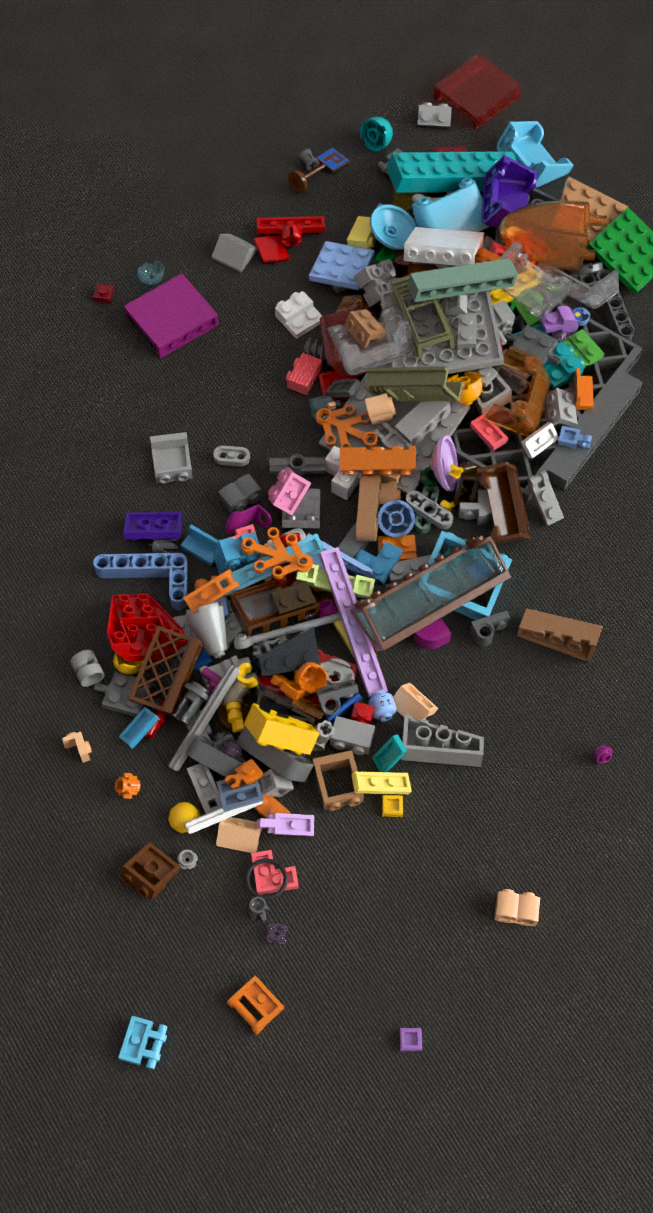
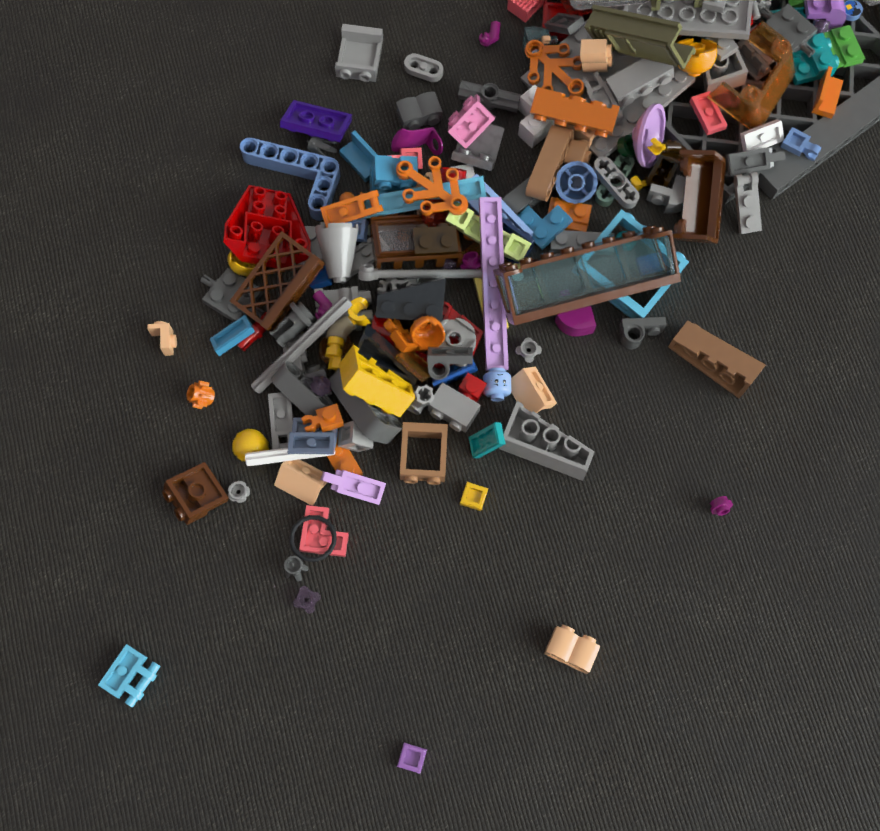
camera: 15 degrees right, 10 degrees up
(87, 668) = (199, 256): light grey wheel -> none
(261, 999) = (266, 666): orange plate -> none
(282, 414) = (491, 37): none -> magenta arm
(381, 783) = (468, 469): light yellow tile -> none
(405, 668) = (528, 343): none -> light grey plate
(538, 461) = (752, 160): none -> dark grey hinge
(561, 408) = (797, 107): light grey bracket -> none

